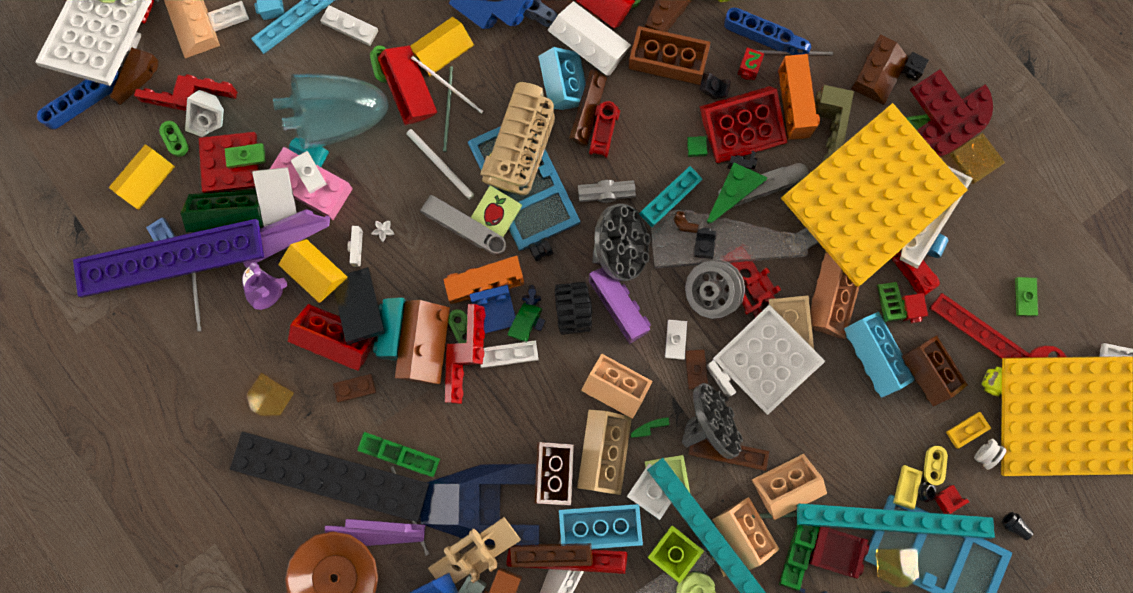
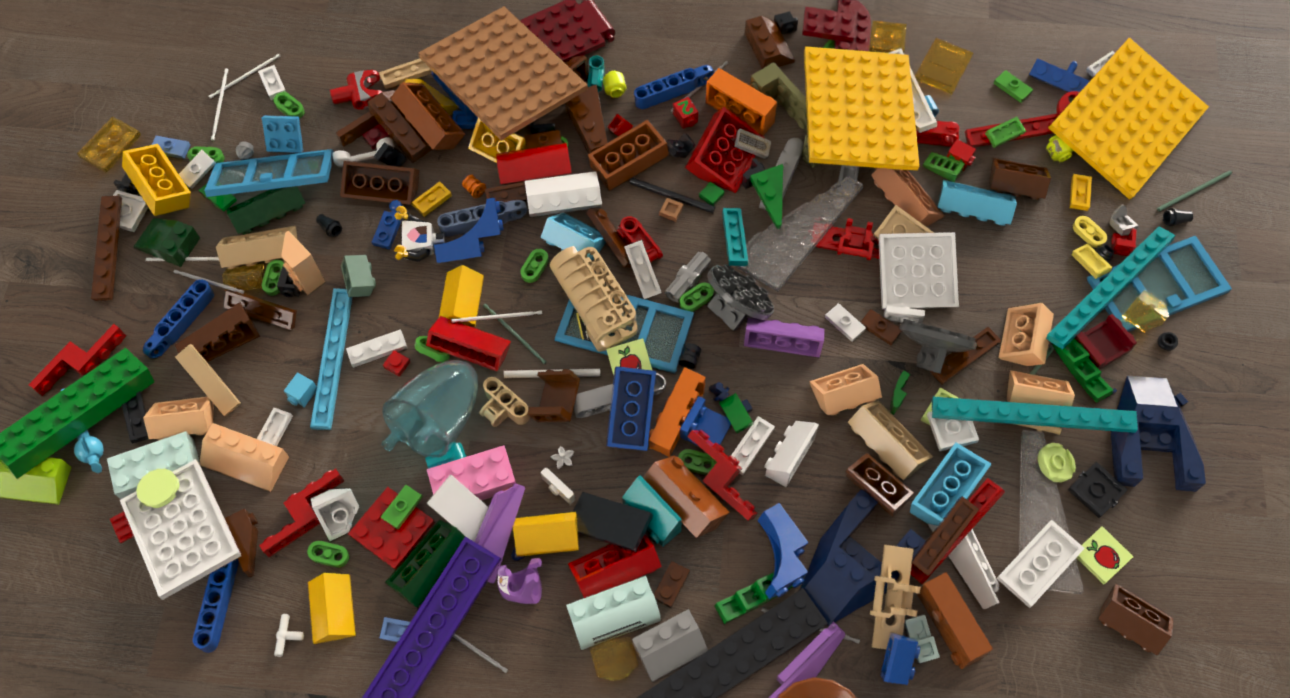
camera: 45 degrees left, 15 degrees down
(96, 162) = (283, 635): none -> white piece
(295, 366) = (613, 612): none -> light aqua brick
(307, 426) = (670, 645): none -> light grey slope
(308, 172) = (468, 464): white plate -> none
(350, 50) = (396, 363): none -> red plate
(374, 152) = (496, 410): none -> tan piece
(421, 185) = (557, 396): none -> reddish brown panel
(453, 245) = (631, 408): none -> blue brick
(453, 443) = (787, 546): none -> arch
(512, 71) = (533, 266): none -> bright green plate
(526, 388) = (791, 451): none -> white slope
(573, 308) = (759, 365): black wheel -> none
(578, 153) = (642, 269): none -> white plate
(595, 210) = (694, 296): none -> bright green plate
(653, 129) = (671, 209): none -> medium nougat plate
(668, 118) = (670, 194): none -> black piece
(675, 554) = (1015, 449): lime slope -> none
(682, 223) = (760, 244): reddish brown arm -> none
(692, 26) = (619, 125): none -> red slope
(699, 291) = (849, 273): light grey wheel -> none
(705, 243) = (793, 241): black bracket -> none
(769, 139) = (752, 143): none -> tile
(968, 326) = (1005, 132): none -> bright green plate
(969, 485) = (1121, 221): none -> light grey plate
(990, 454) = (1110, 191): white wheel -> none
(994, 225) = (944, 65): none -> clear yellow piece
(1060, 521) = (1195, 190): none -> sand green axle
(1071, 327) = (1058, 77): none -> blue plate

